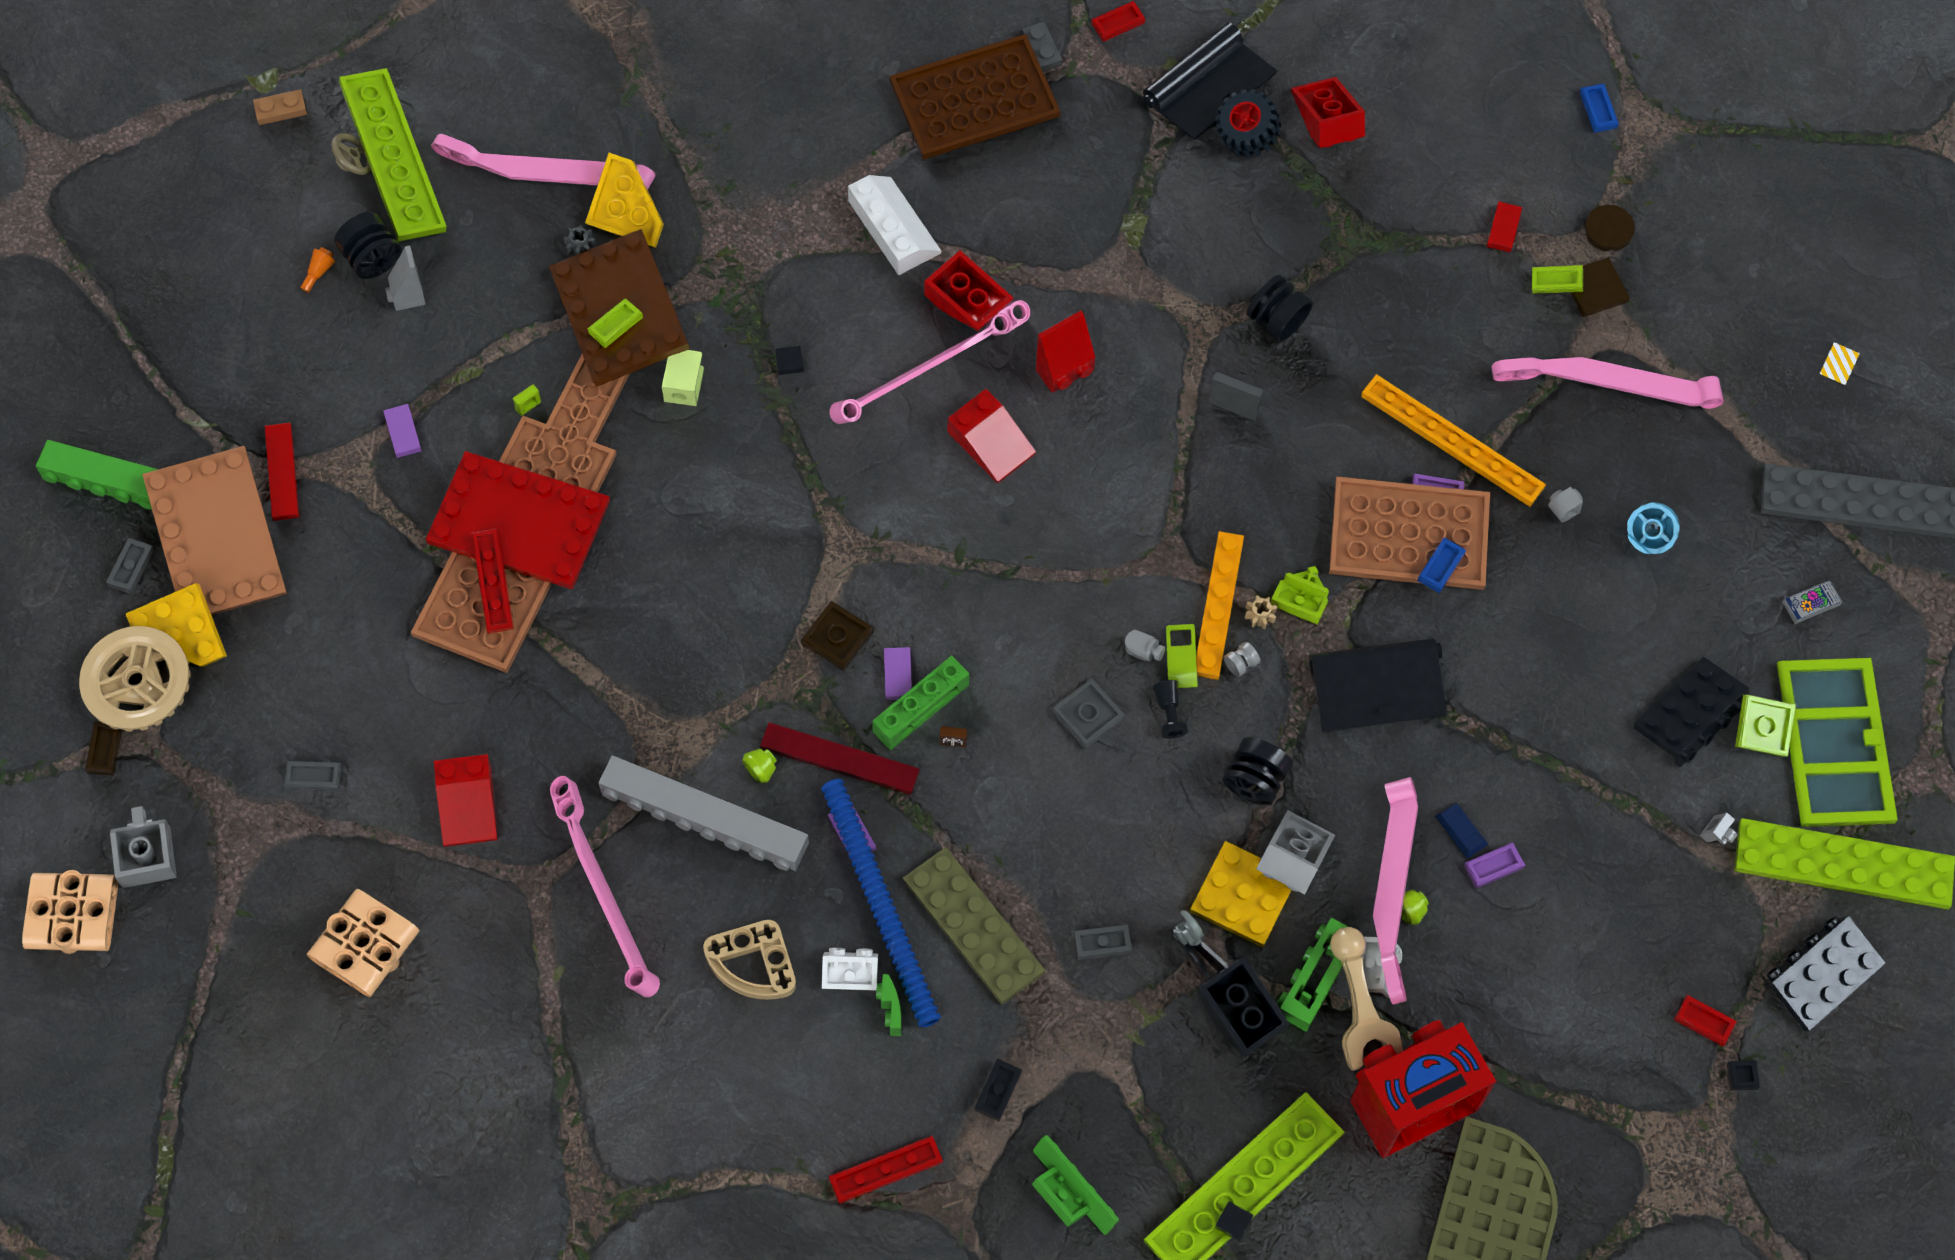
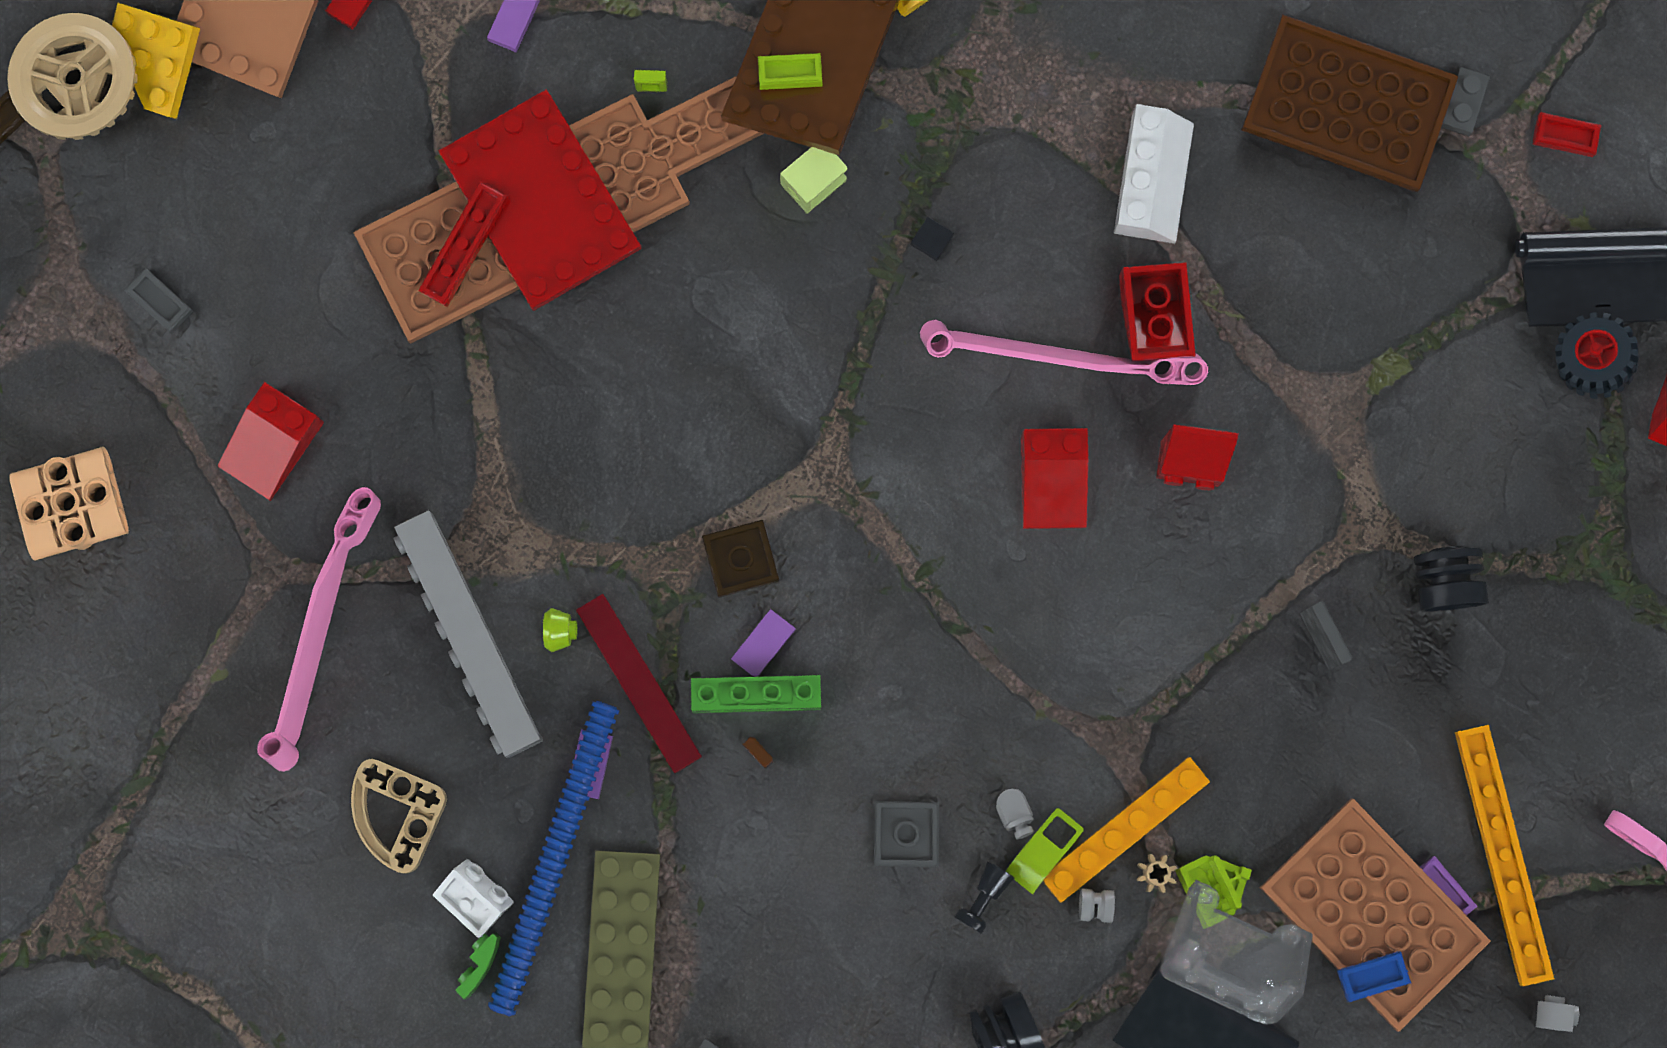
camera: 40 degrees right, 15 degrees up
(1353, 622) = (1235, 960): none -> clear windscreen

